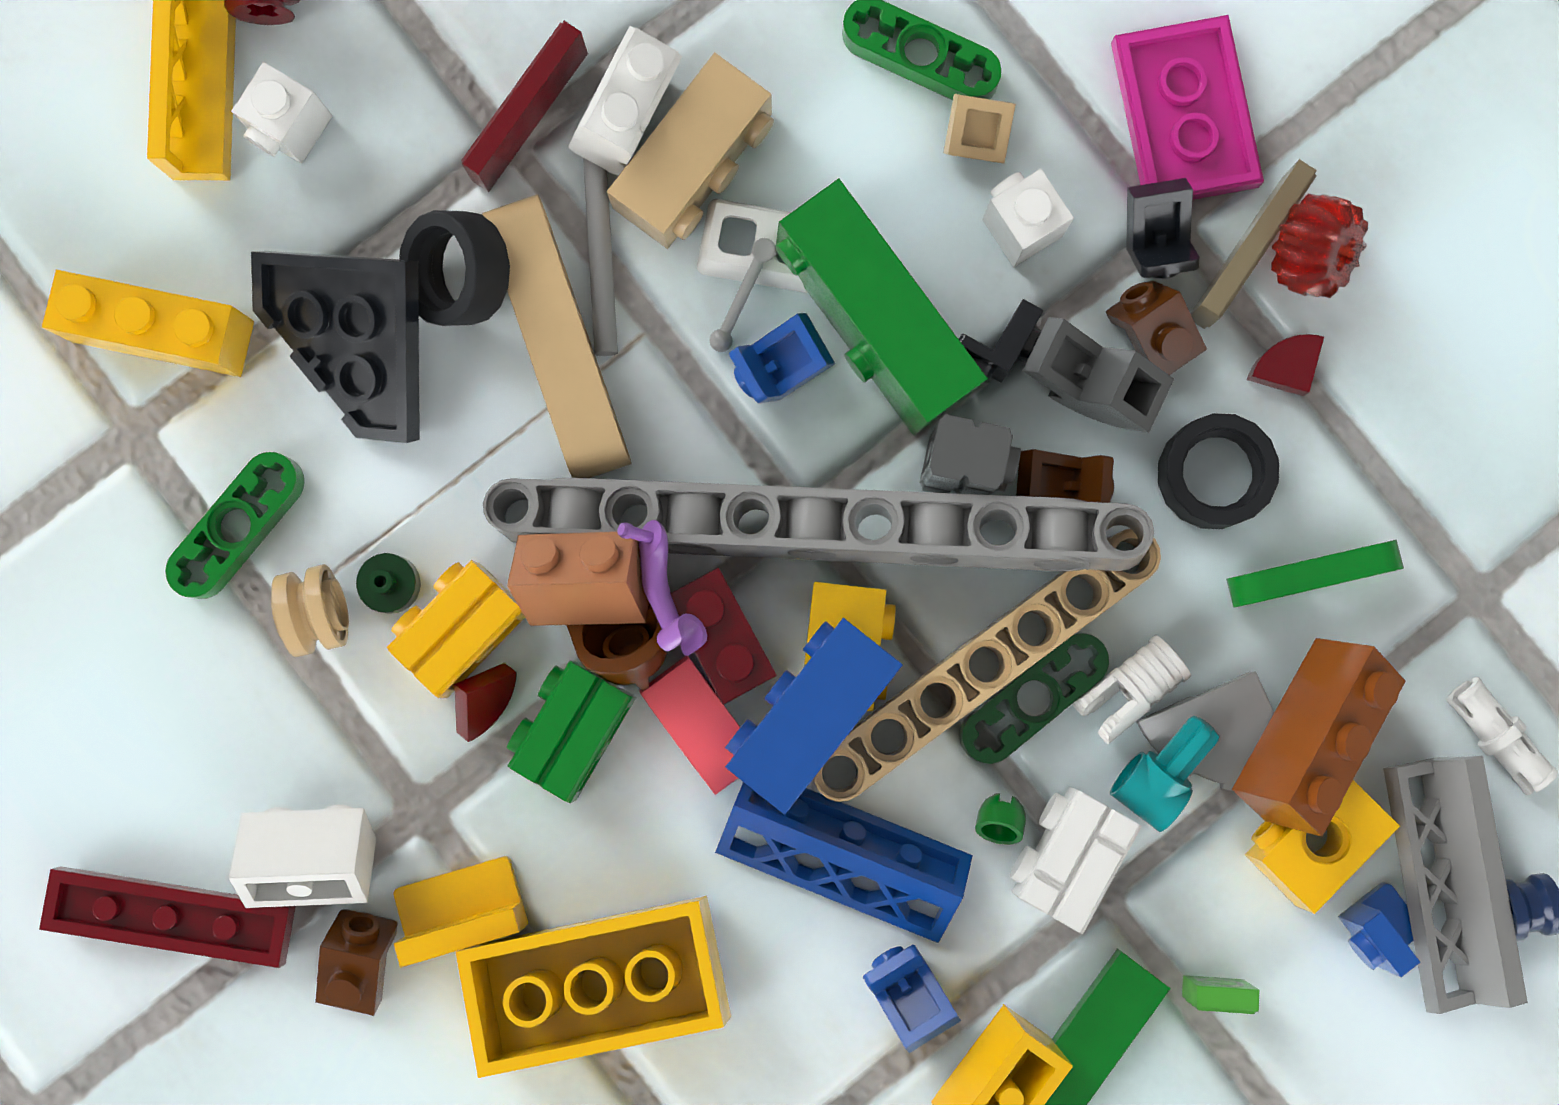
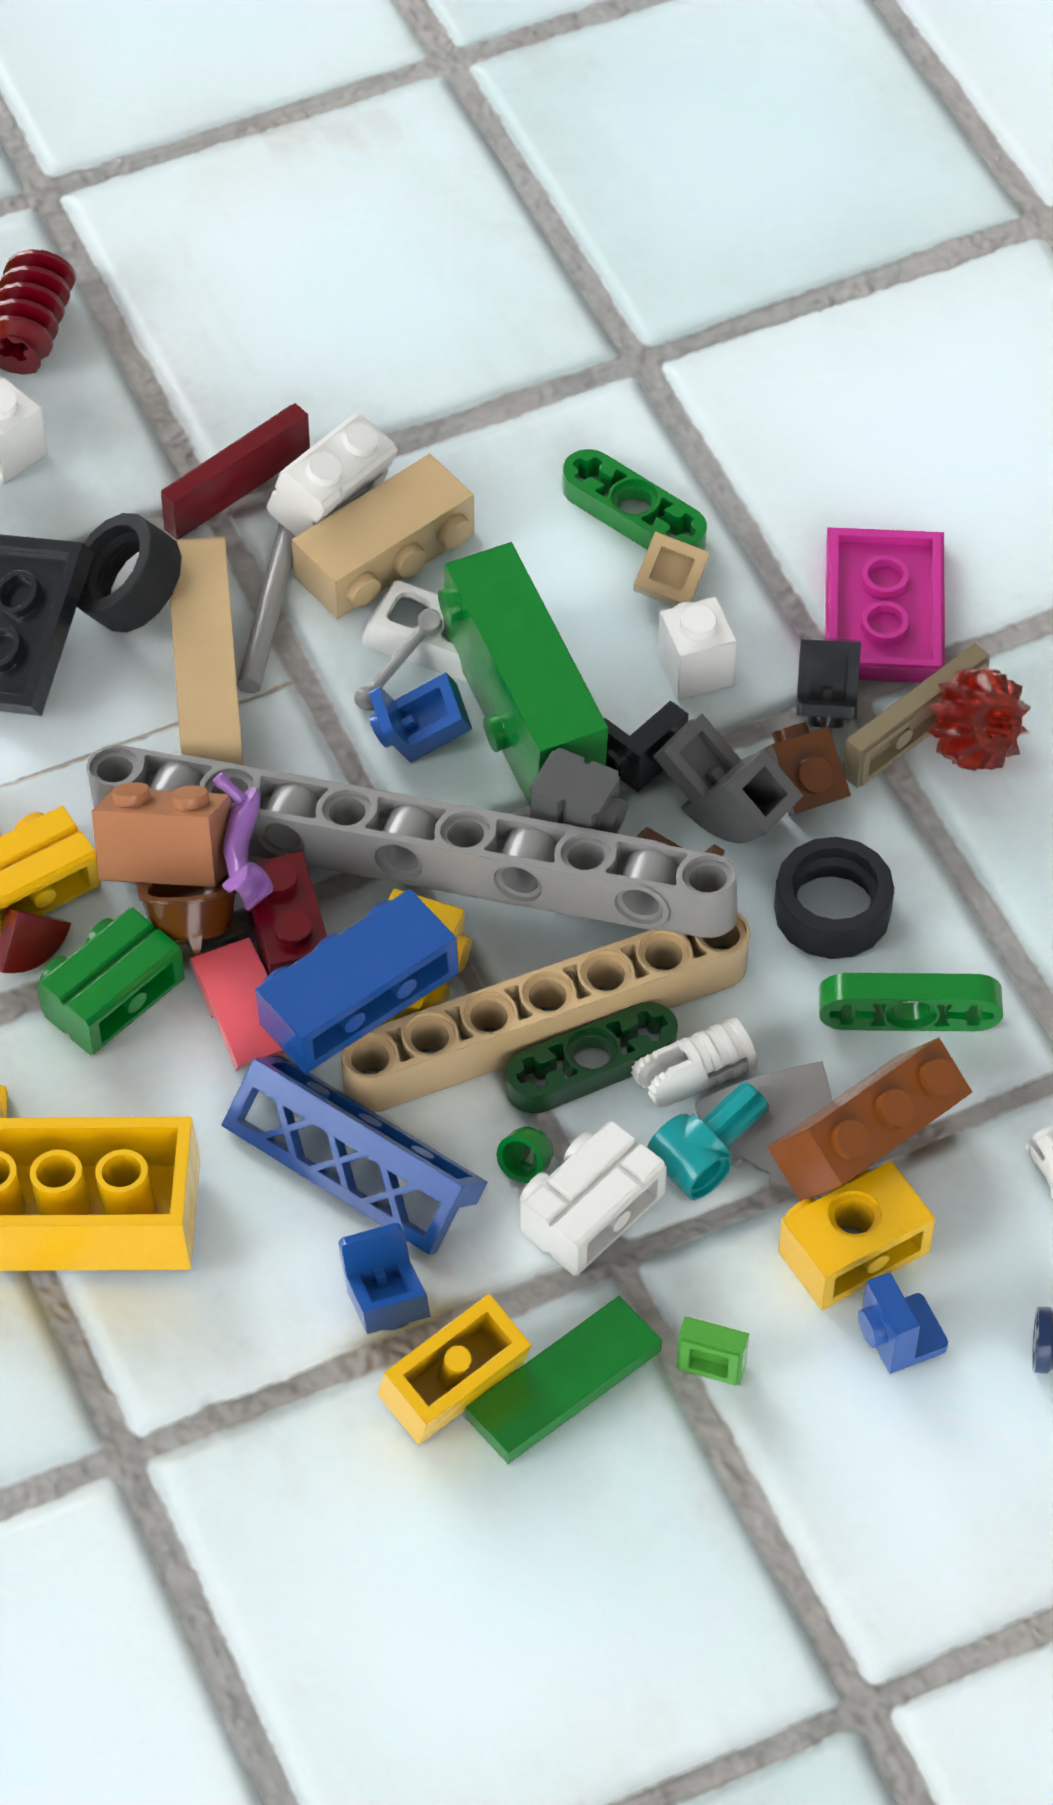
camera: 10 degrees right, 30 degrees down
(1289, 364) = (931, 827): dark red tile -> none
(1464, 877) = (1006, 1307): light grey fence -> none

